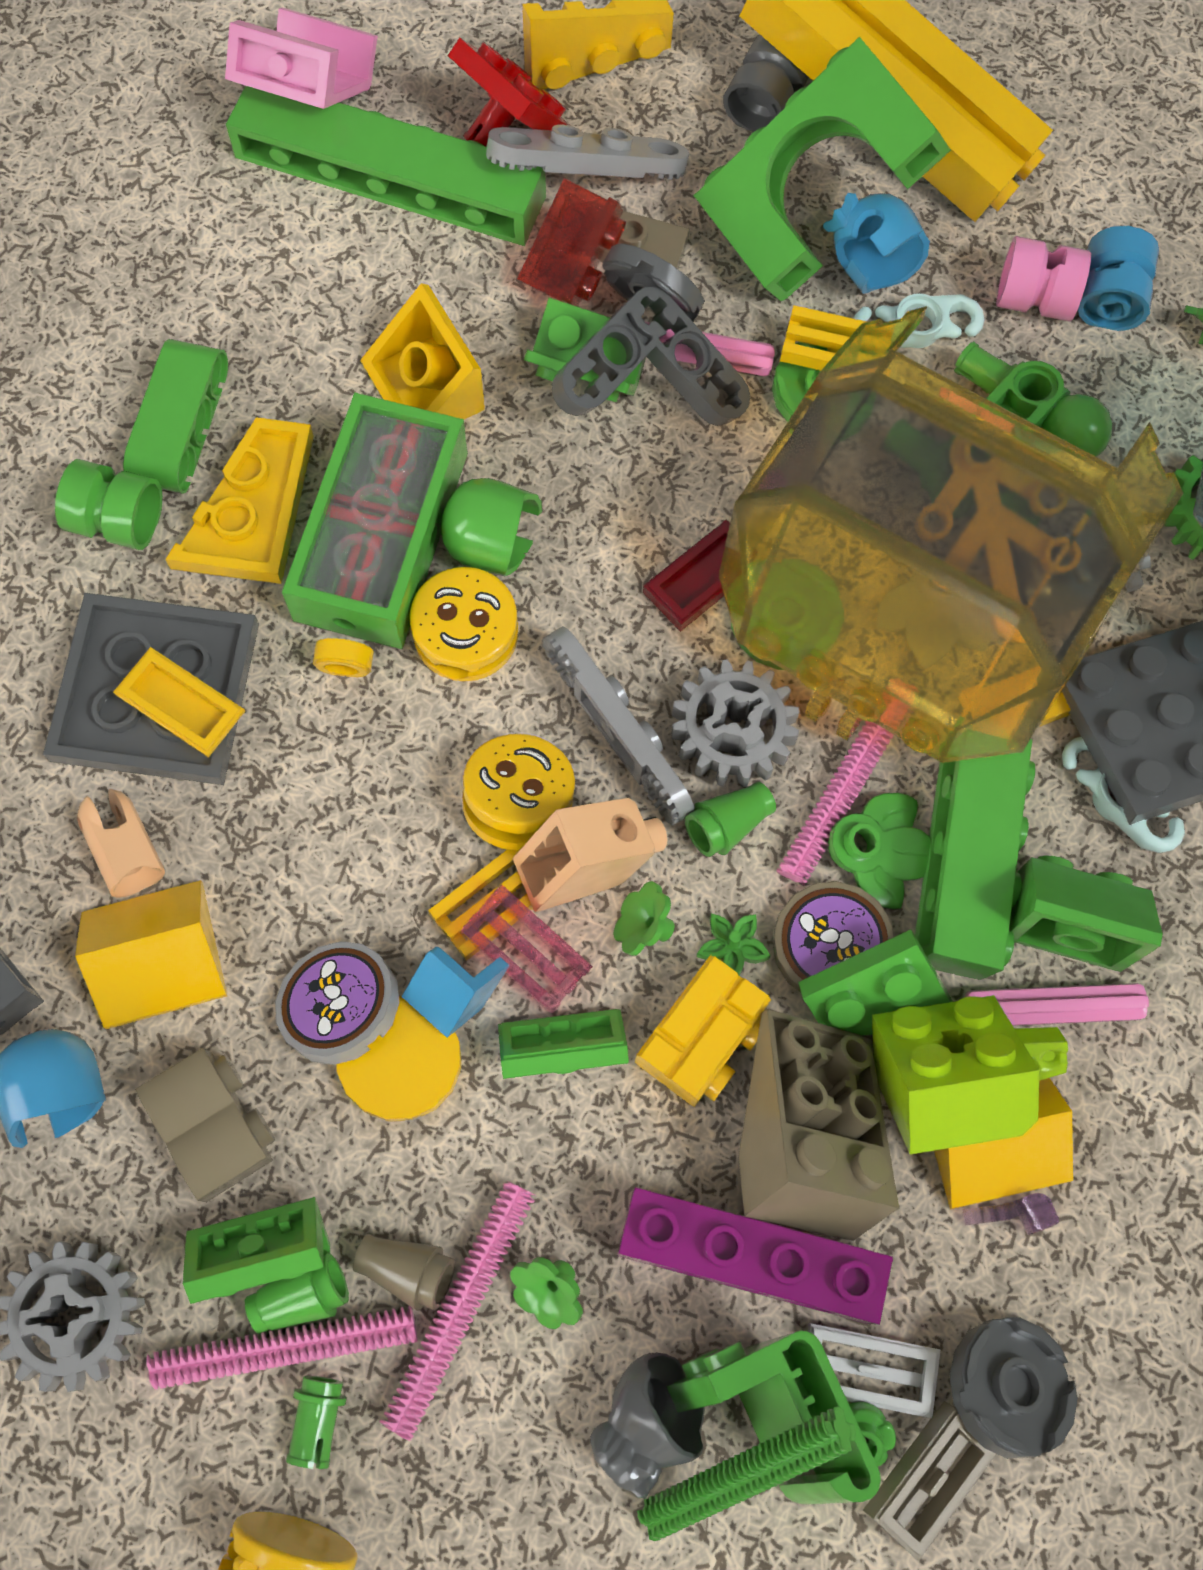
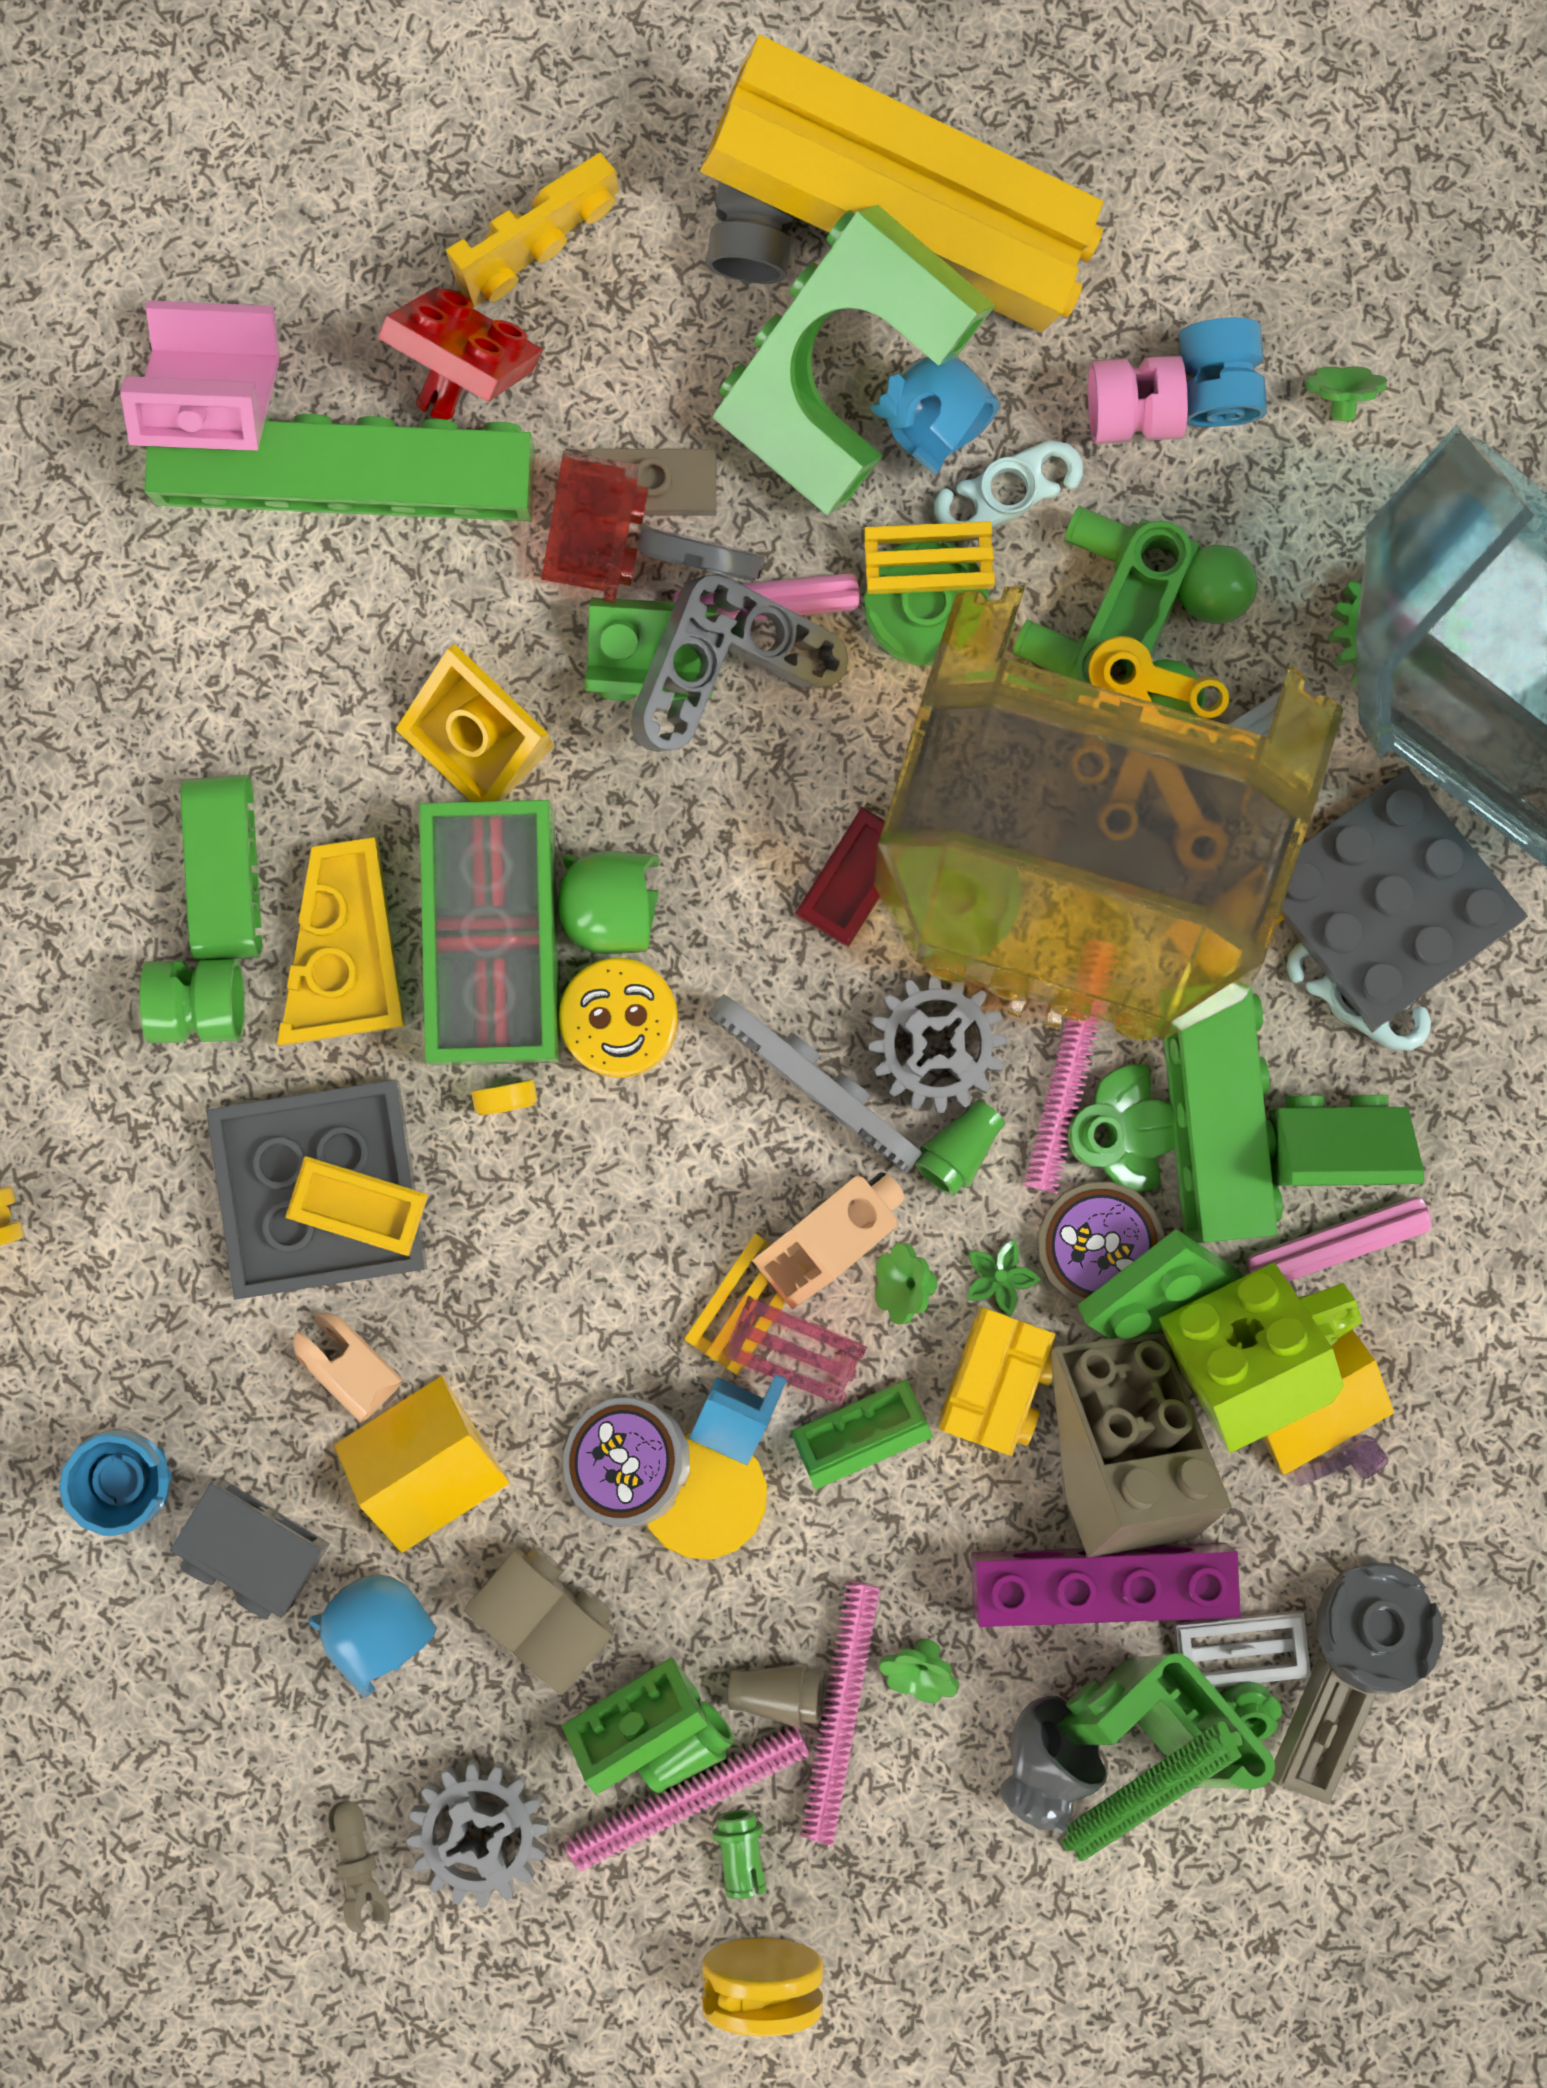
camera: 15 degrees left, 15 degrees up
(515, 788) = (736, 1190): yellow head -> none
(574, 152) = (573, 397): light grey plate -> none

